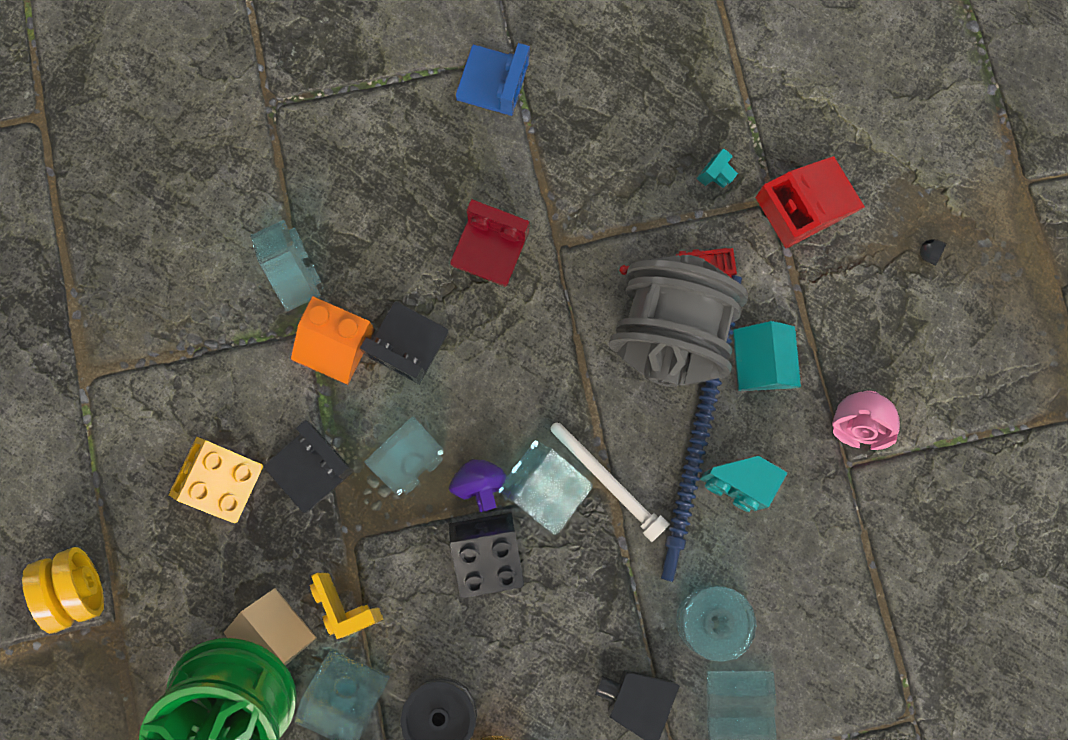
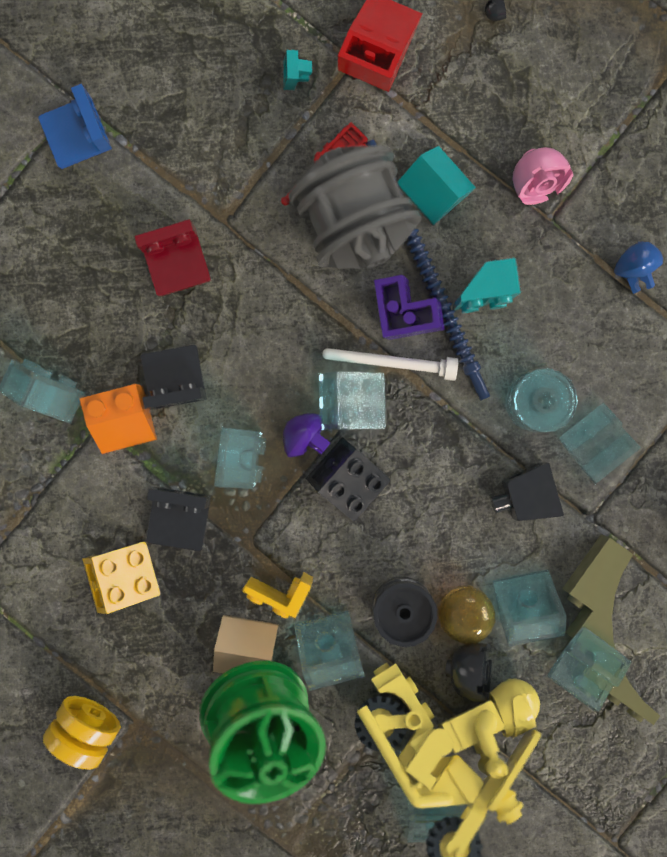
camera: 30 degrees left, 10 degrees up
(648, 445) = (400, 315): none -> dark purple brick
(899, 568) = (638, 264): none -> blue piece

